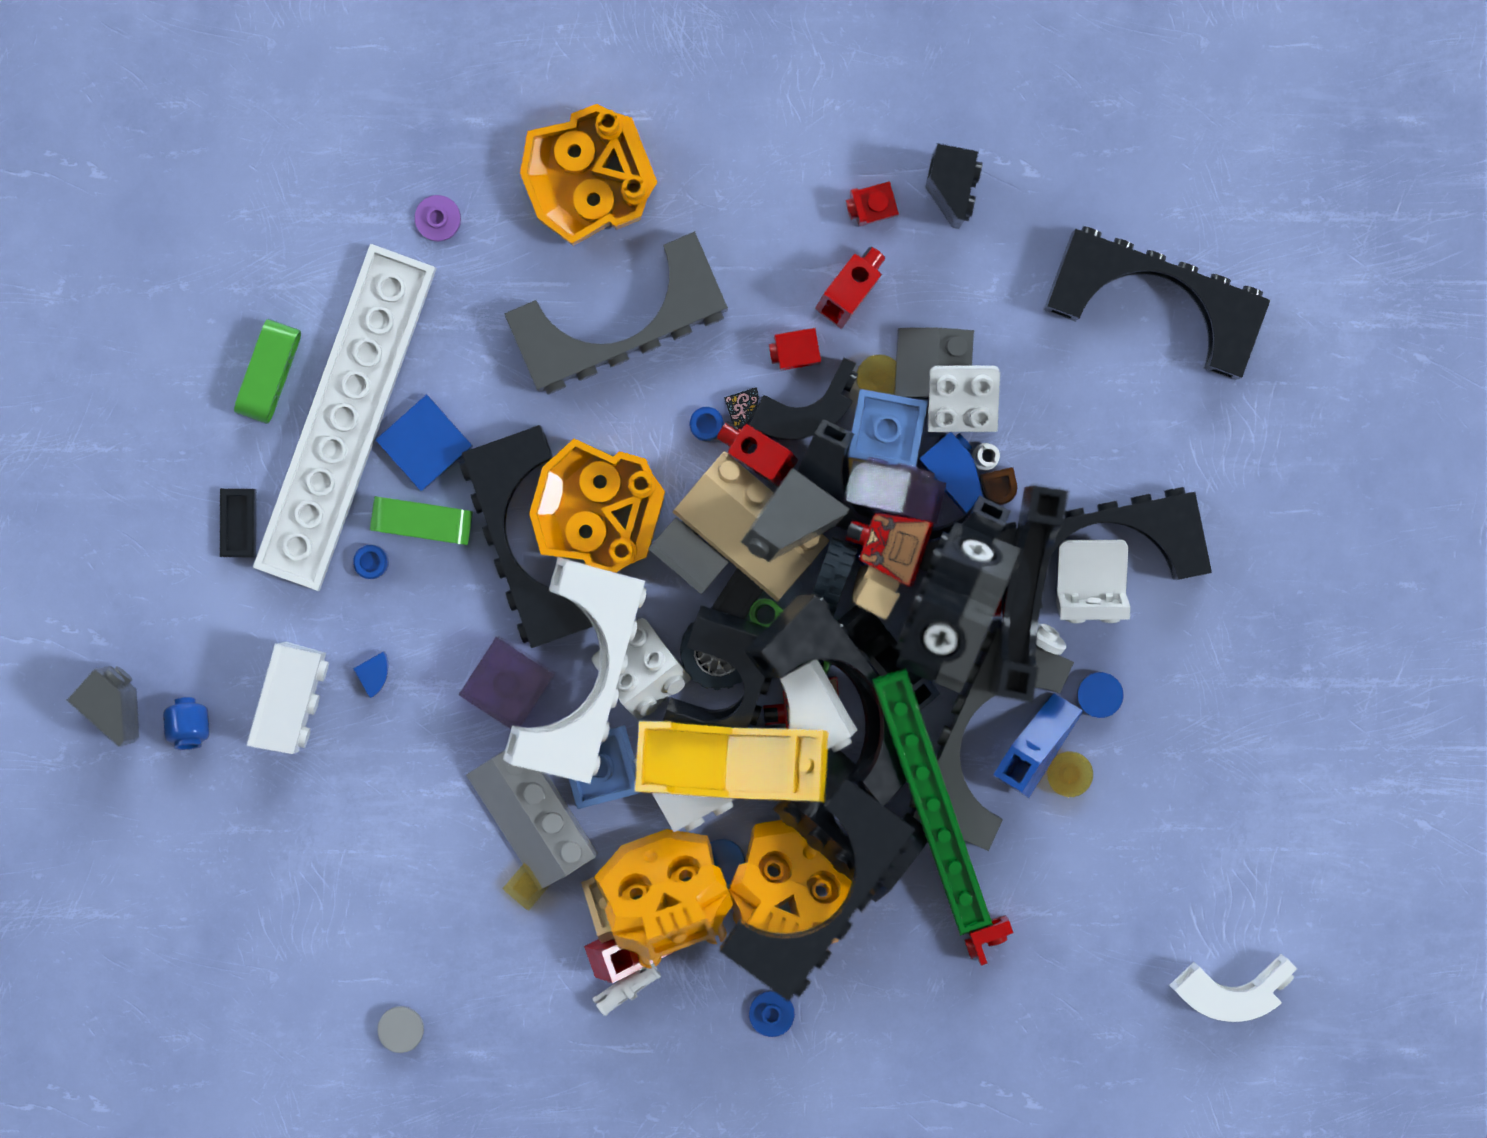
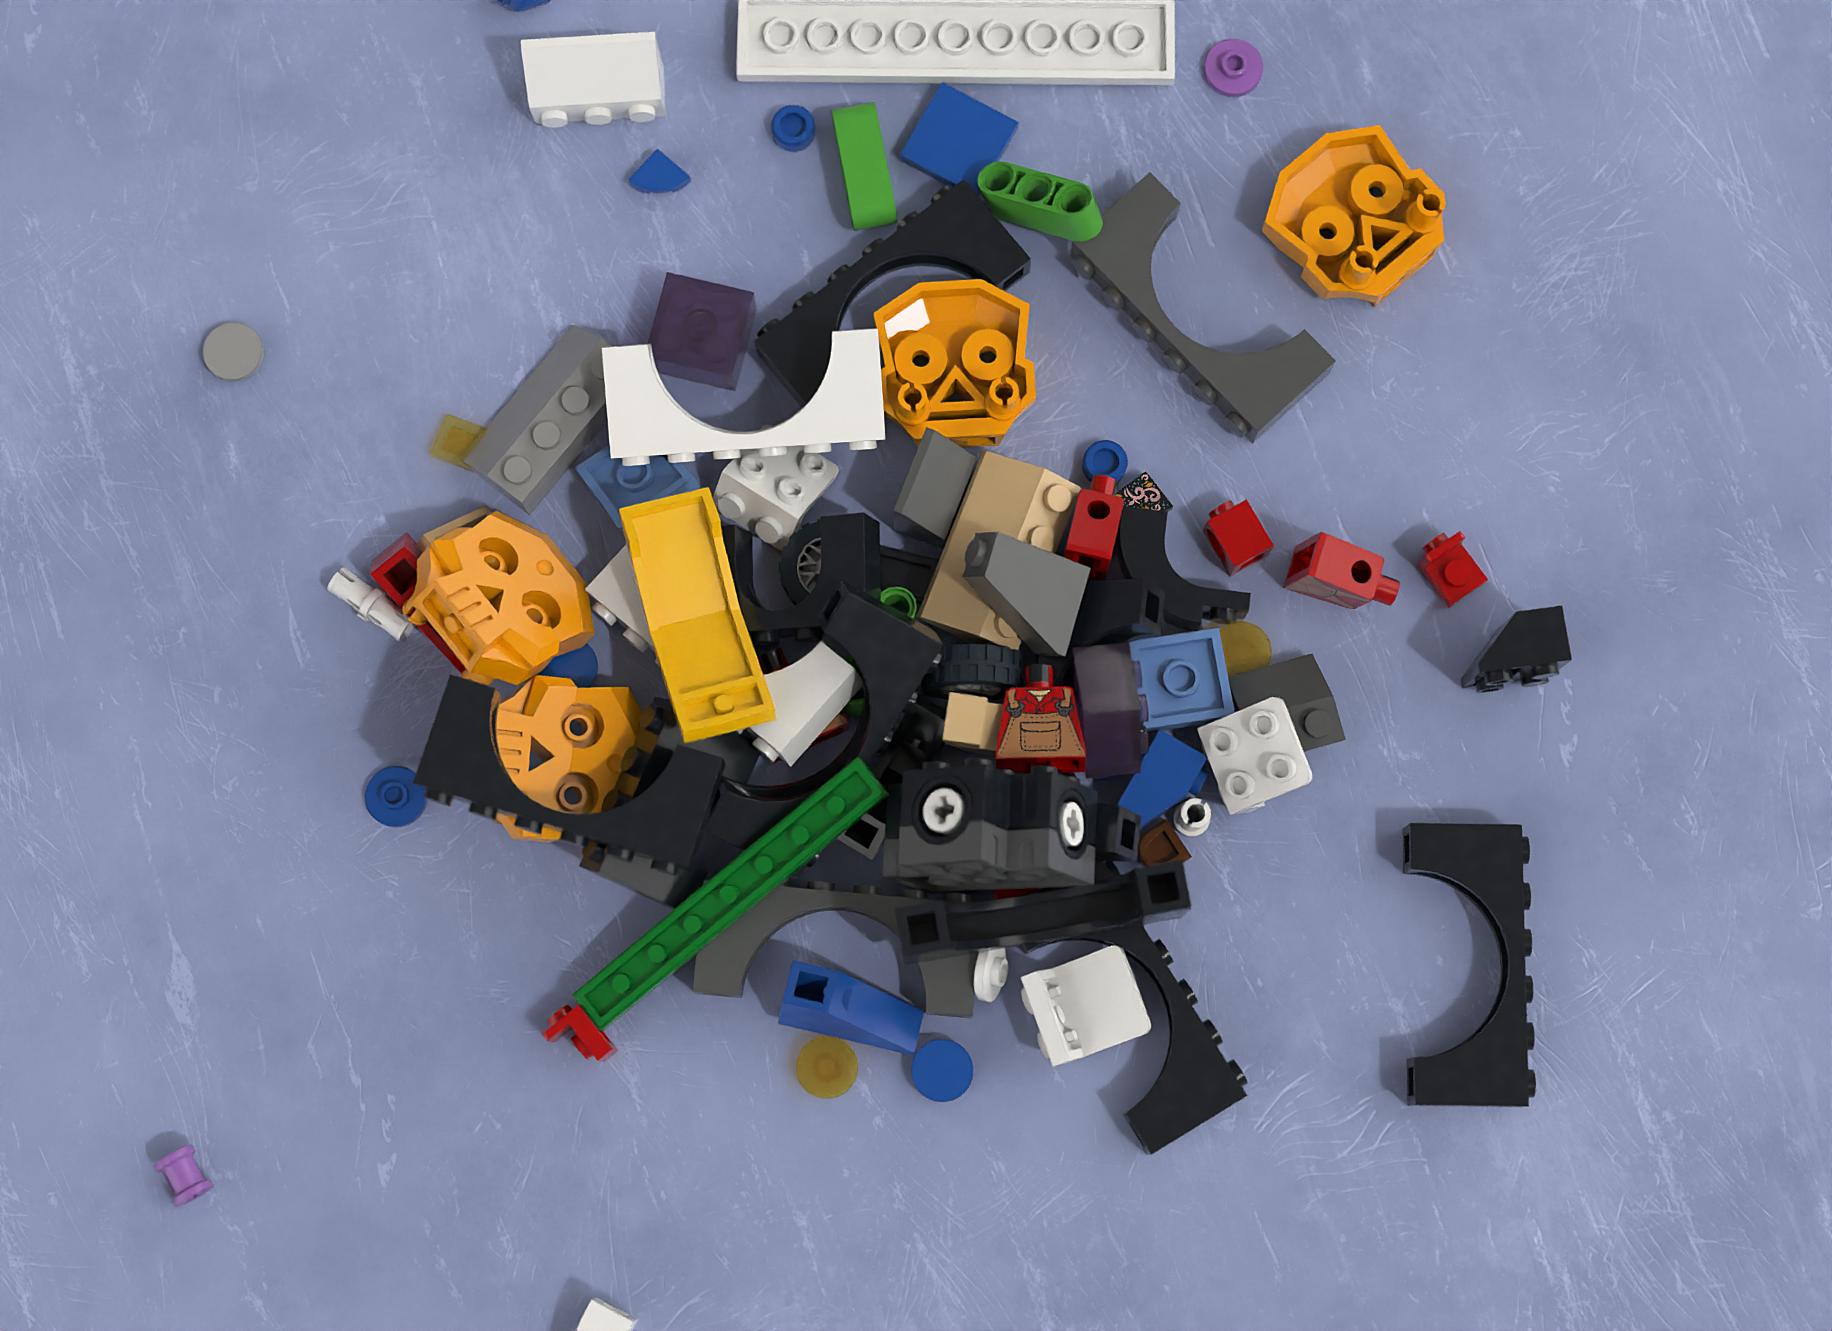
camera: 75 degrees right, 10 degrees down
(512, 399) = (1040, 201): none -> bright green beam

